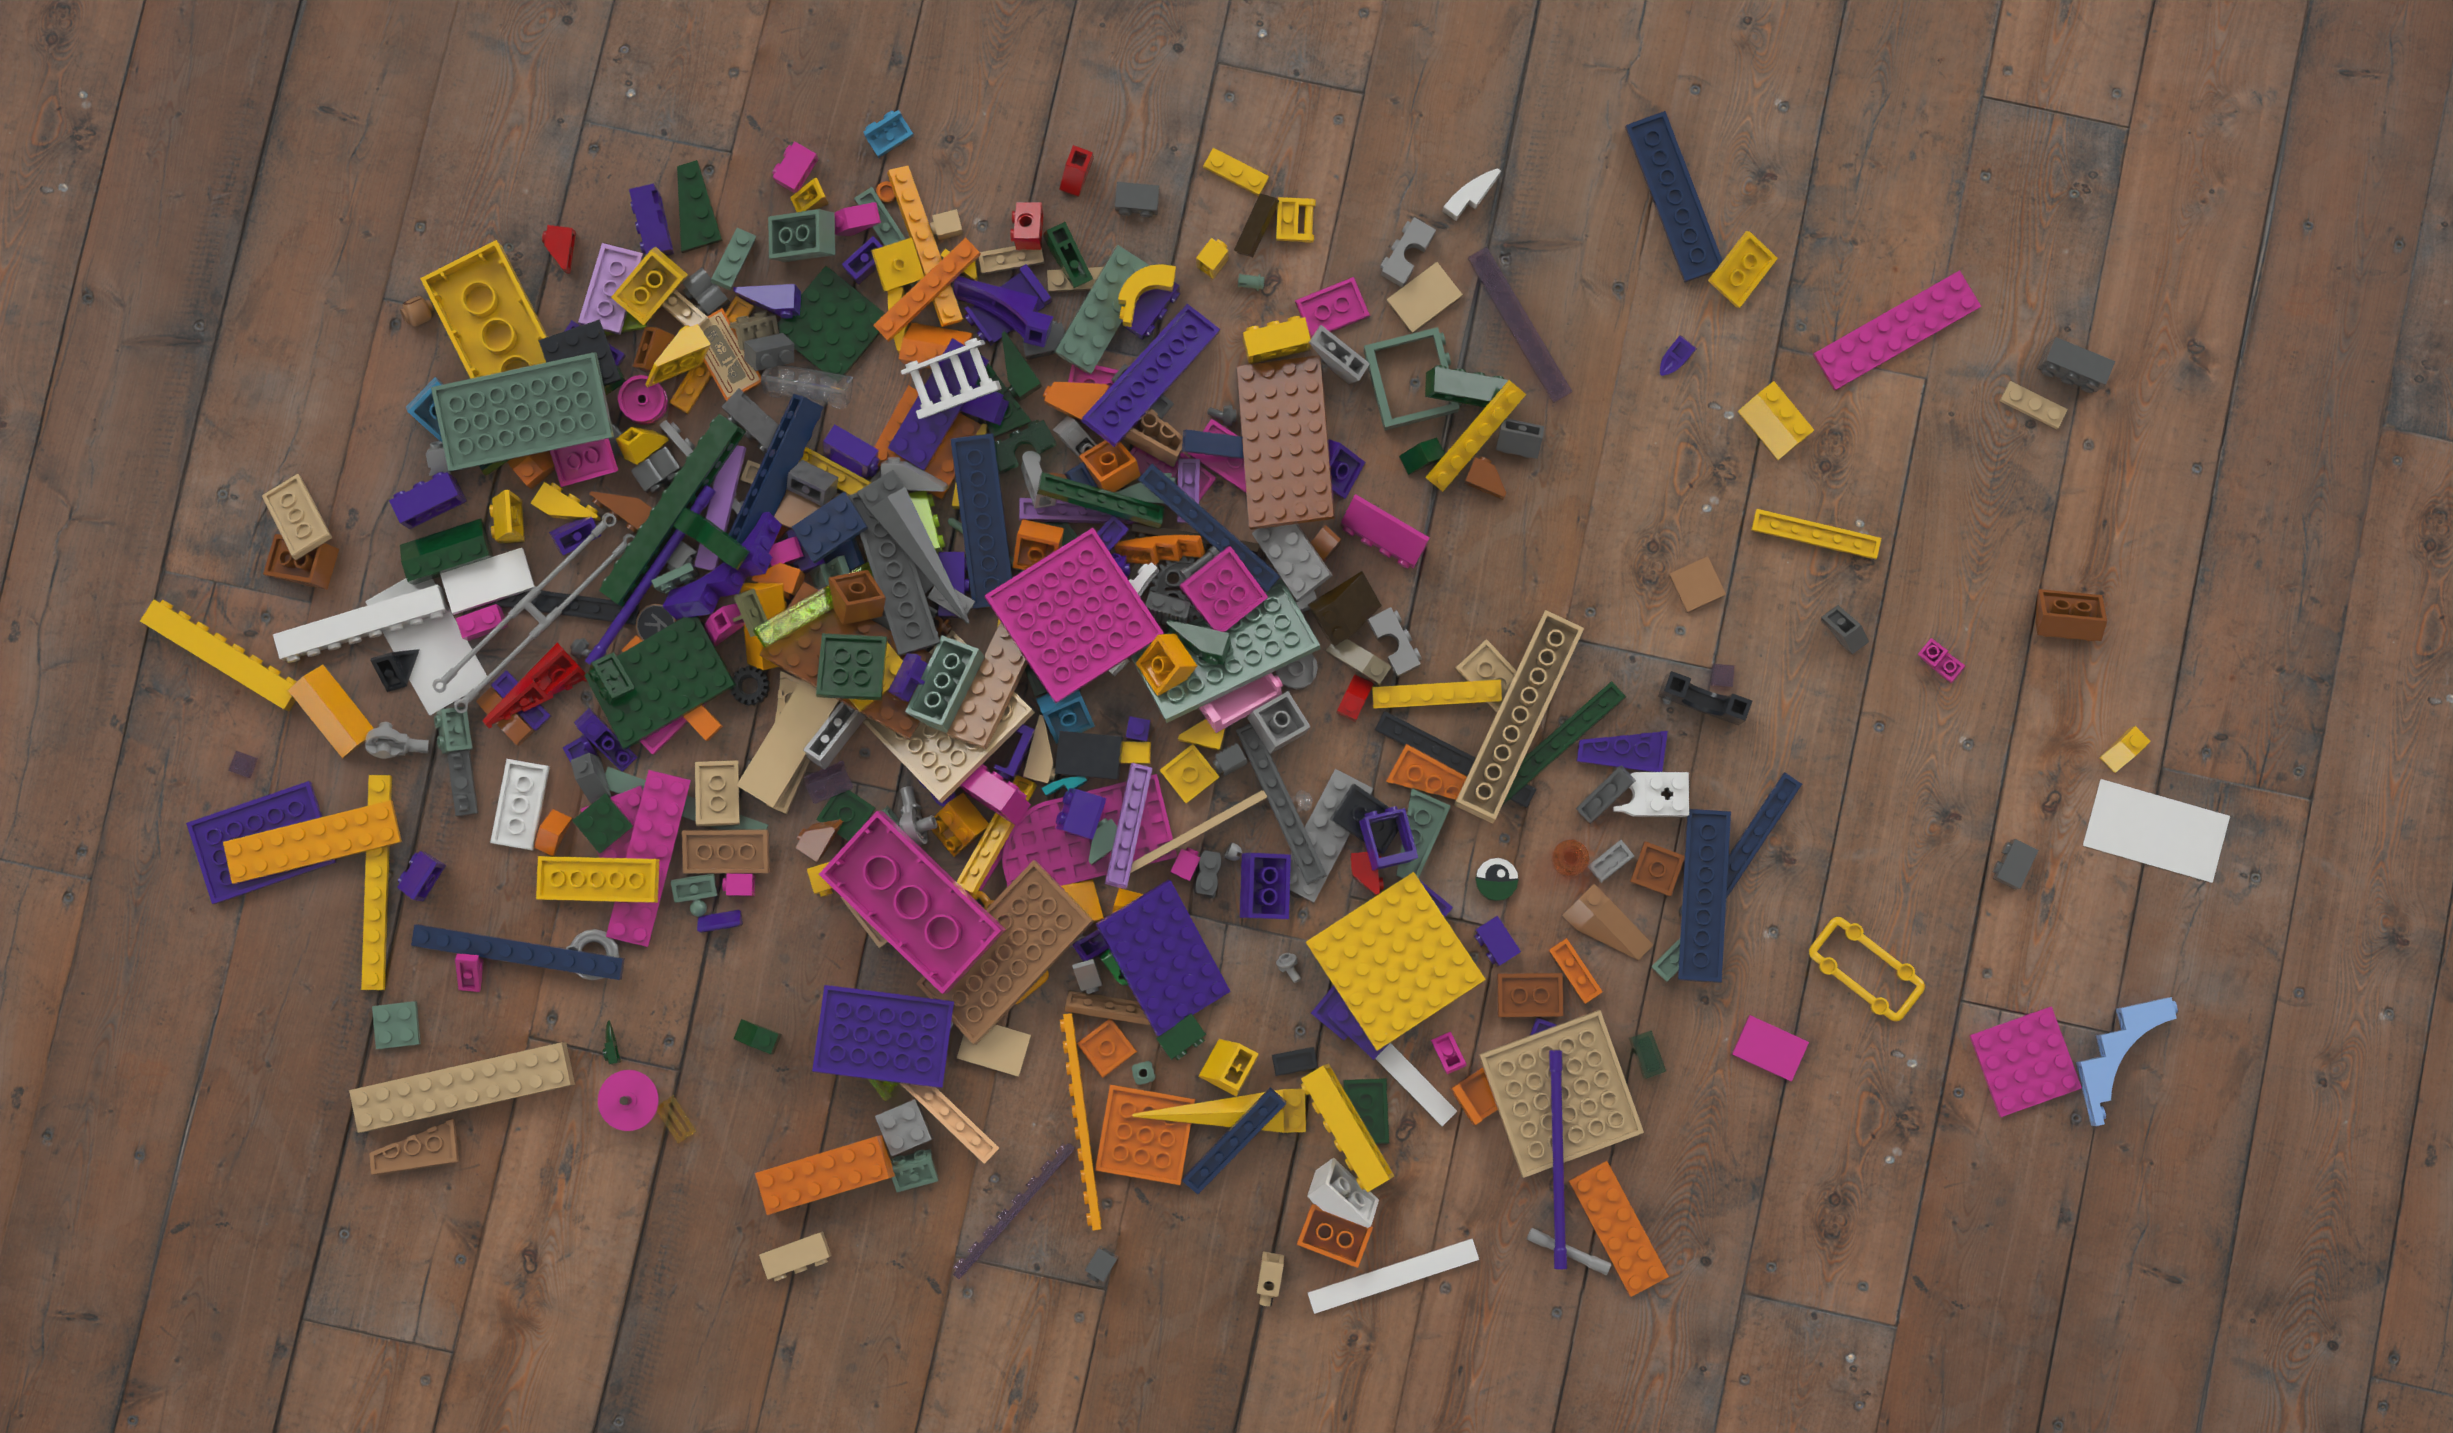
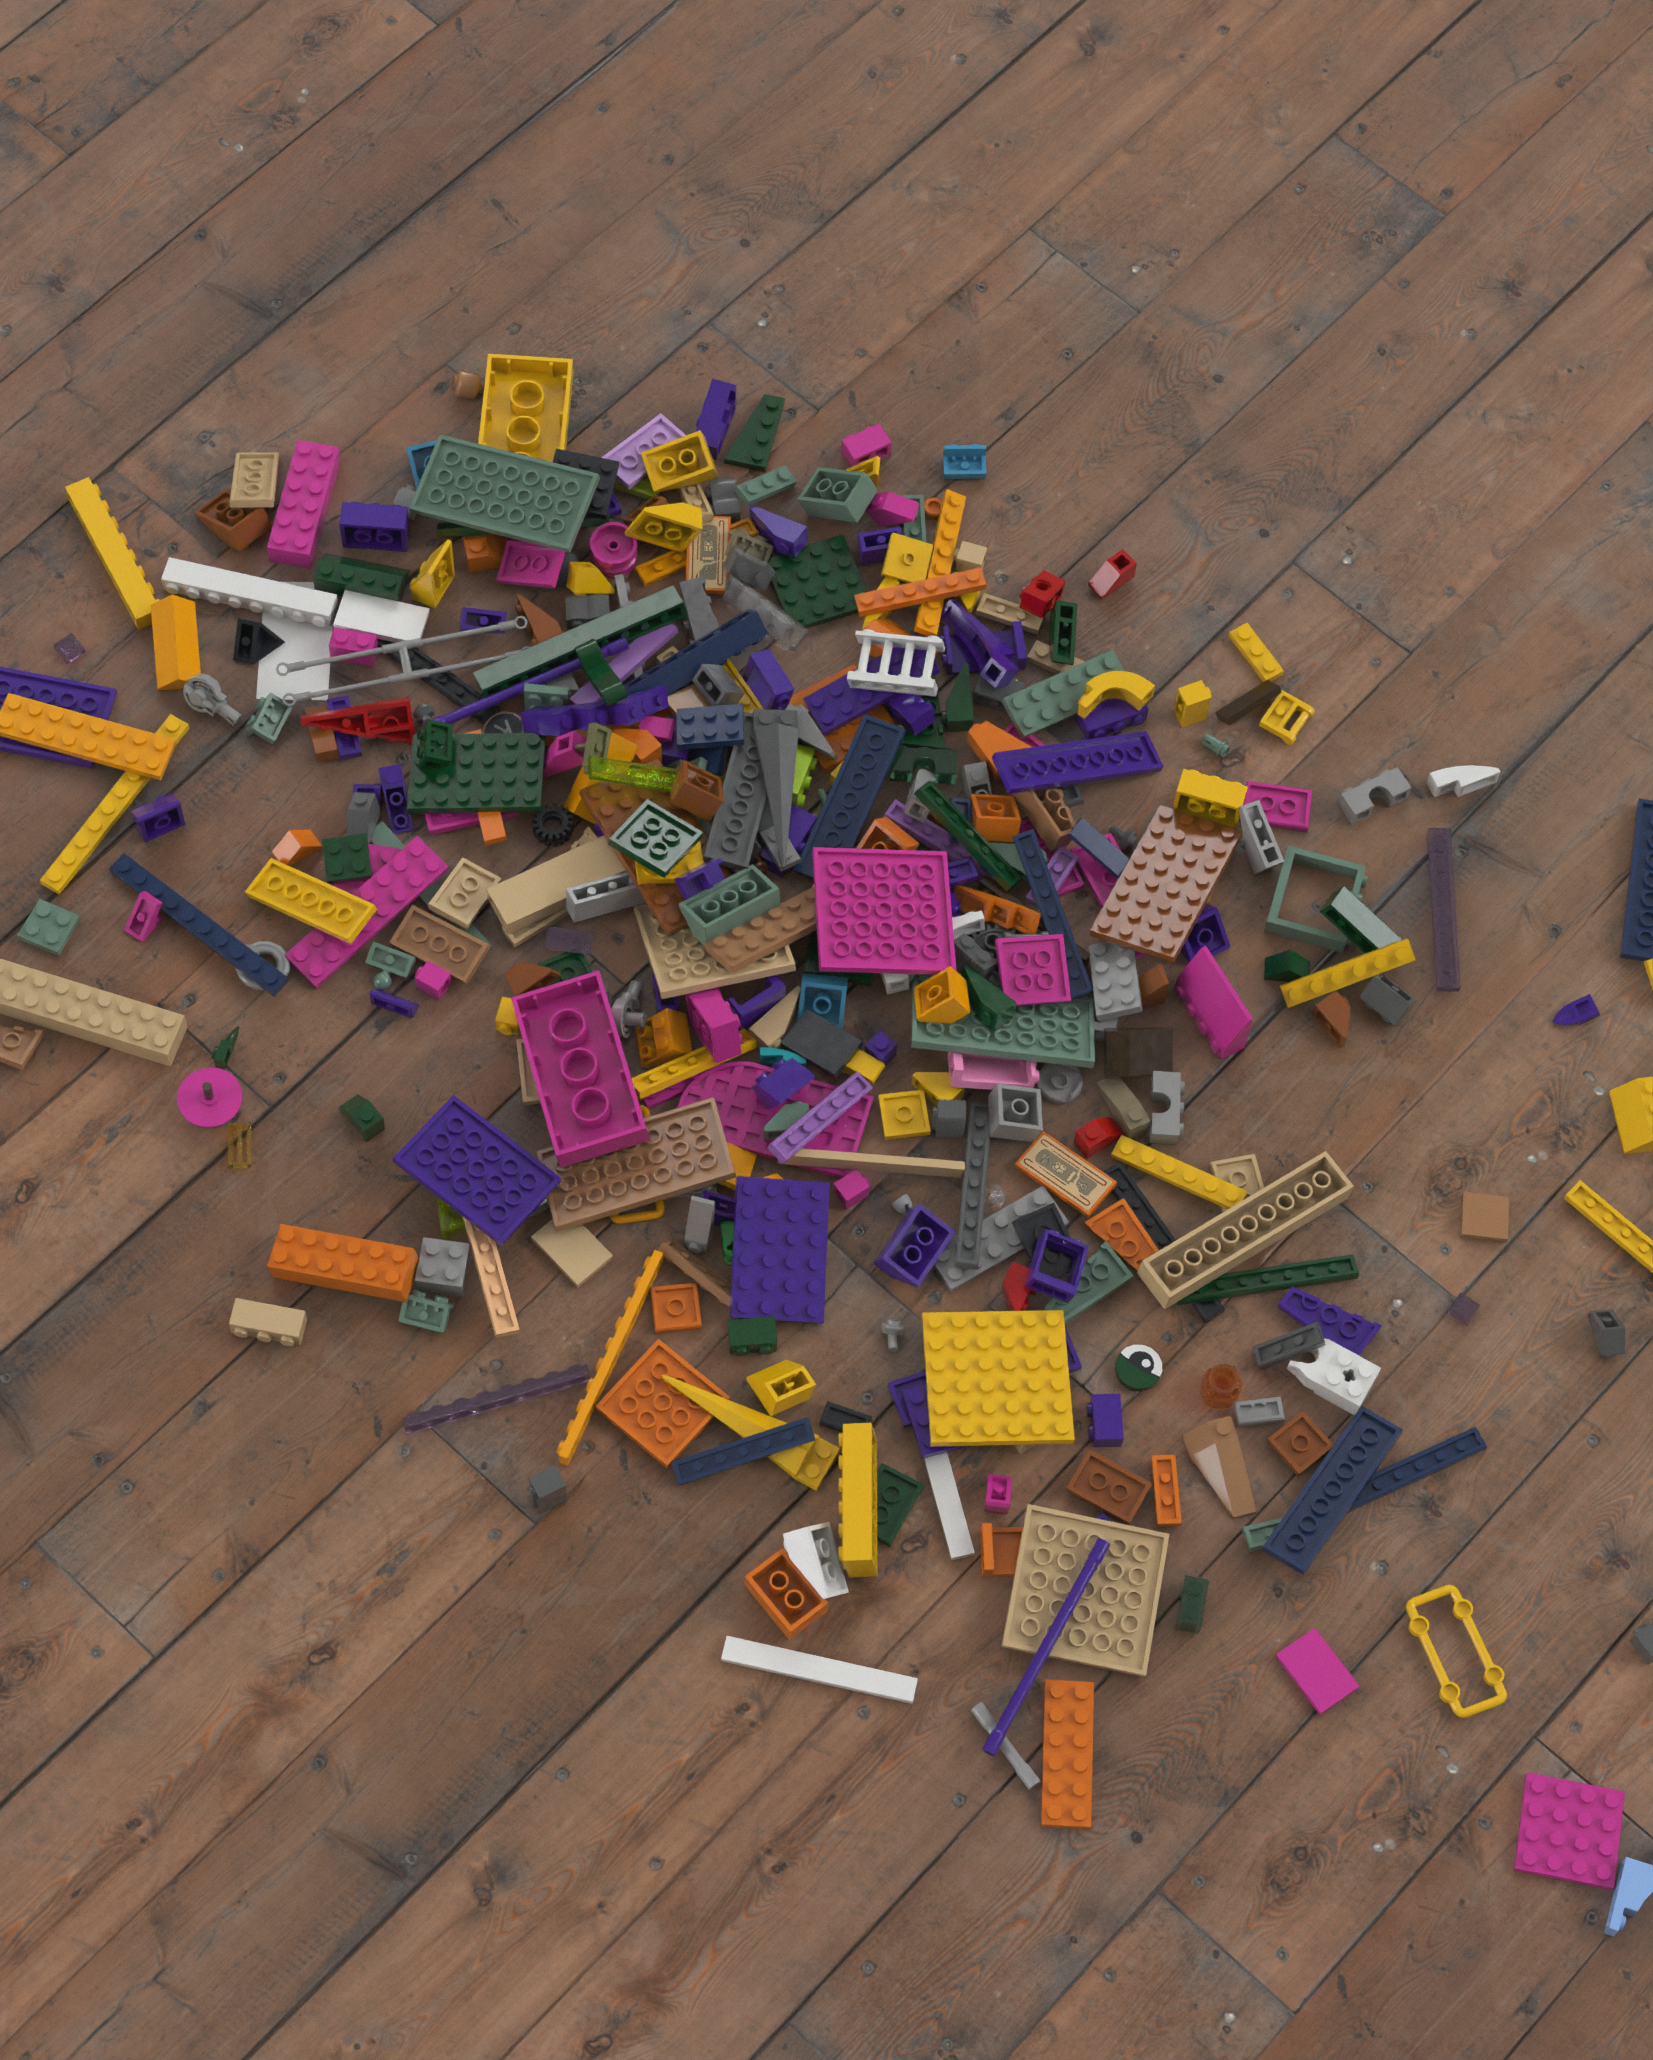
camera: 25 degrees right, 20 degrees down
(352, 511) = (304, 504): none -> dark pink brick
(462, 783) = (246, 766): dark grey plate -> none
(520, 804) = (284, 810): white tile -> none
(557, 505) = (483, 593): yellow slope -> none
(560, 244) = (624, 398): red slope -> none
(1137, 199) = (1153, 625): dark grey brick -> none
(1150, 1072) = (696, 1353): sand green brick -> none
(1207, 880) = (865, 1209): dark grey brick -> none
(1270, 1270) = (702, 1587): tan torso -> none
(1347, 748) = (1065, 1174): none -> tile
(1424, 297) = (1368, 841): tan tile -> none
(1727, 708) = (1412, 1293): black arch -> none

